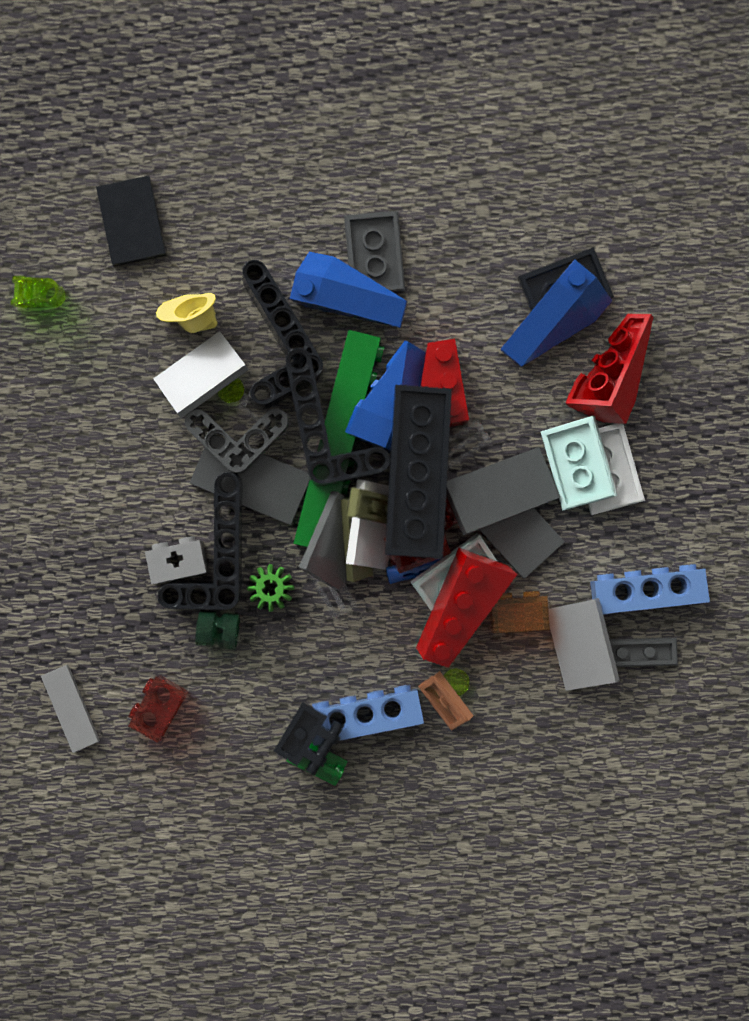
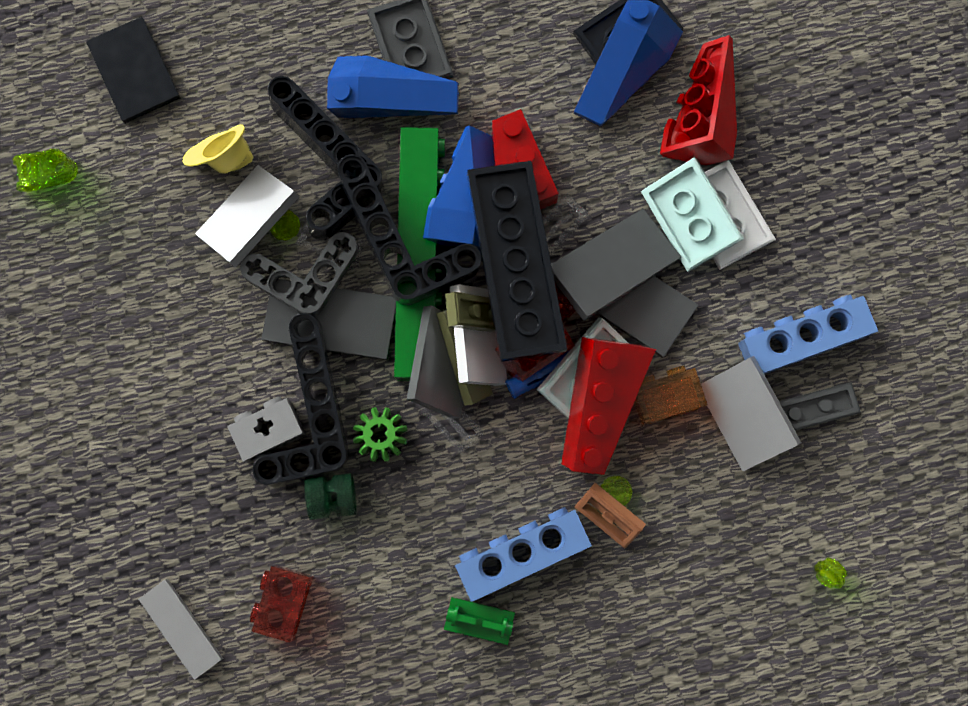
camera: 10 degrees left, 5 degrees down
(300, 734) = (453, 592): black plate -> none
(616, 792) = (830, 573): none -> clear neon green plate

